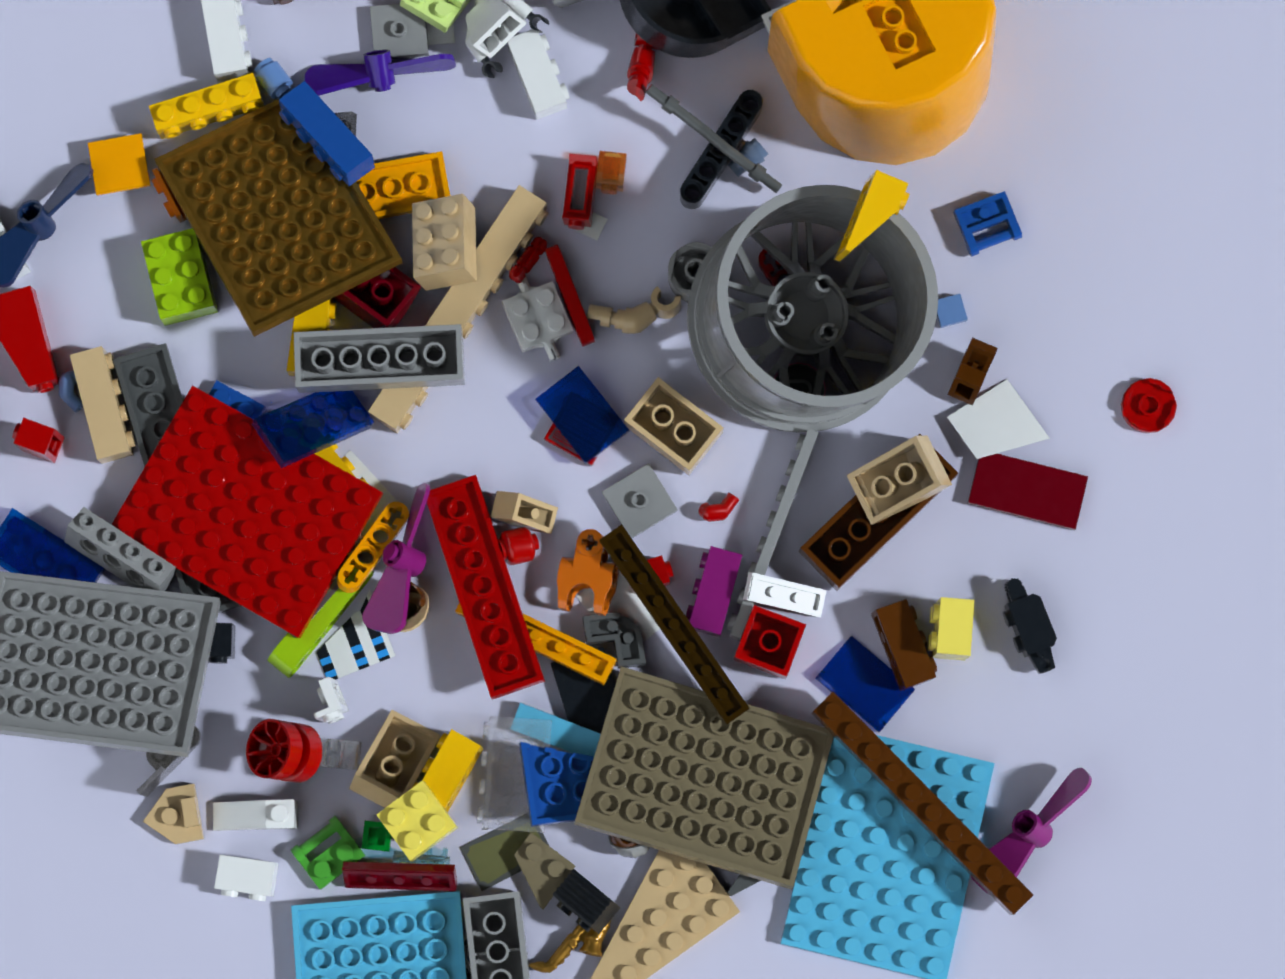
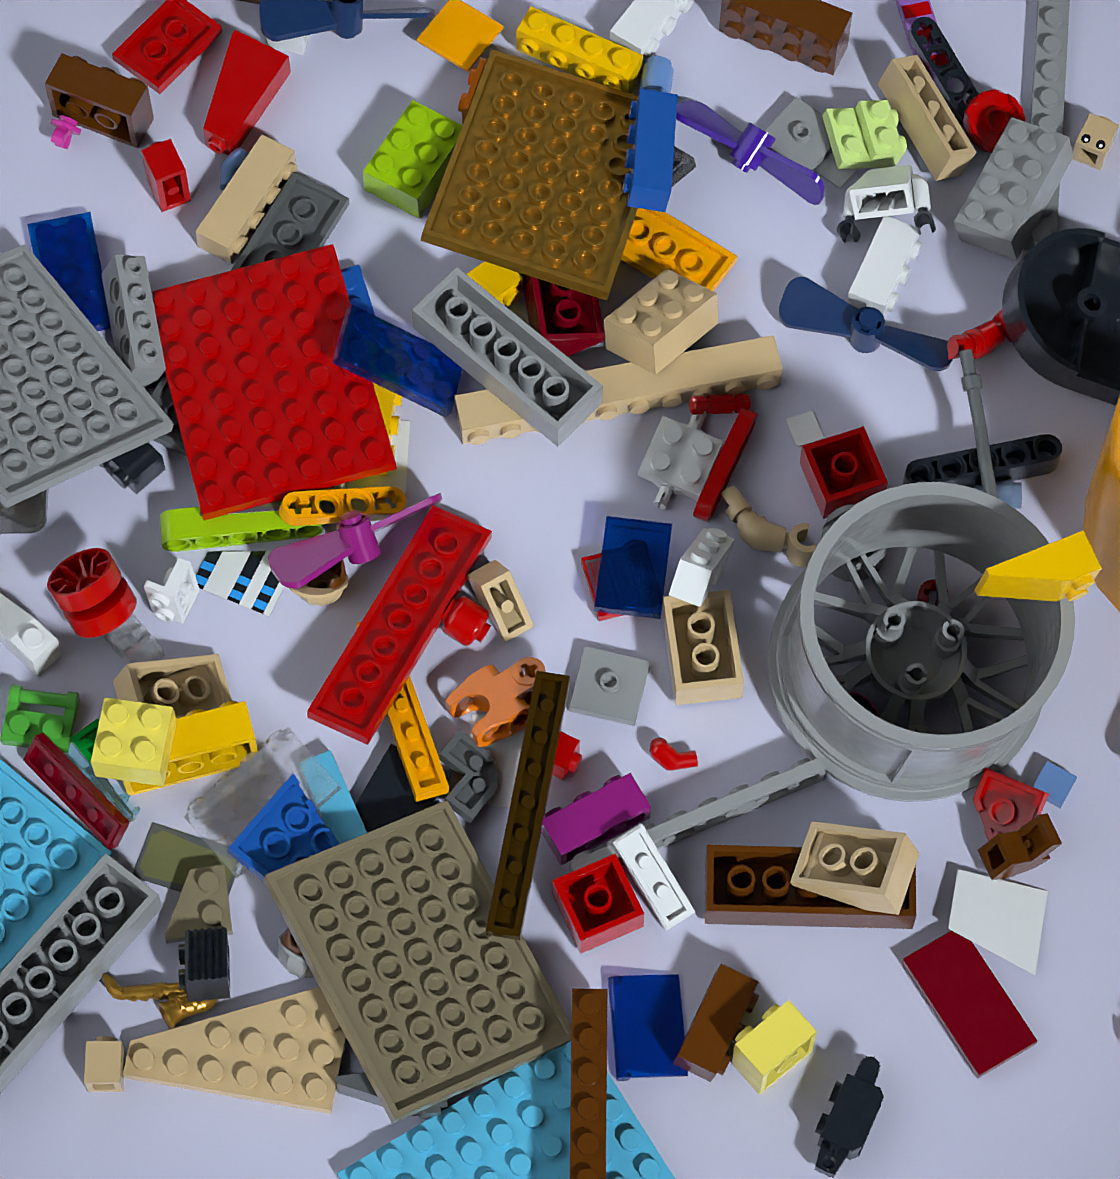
camera: 45 degrees right, 15 degrees down
(525, 141) = (817, 310): none -> dark blue piece
(580, 191) = (823, 390): red window -> none
(611, 172) = (866, 399): clear orange brick -> none
(628, 379) = (701, 566): none -> white arch
(646, 233) = (842, 470): none -> red brick
(943, 352) = (1006, 803): none -> red plate

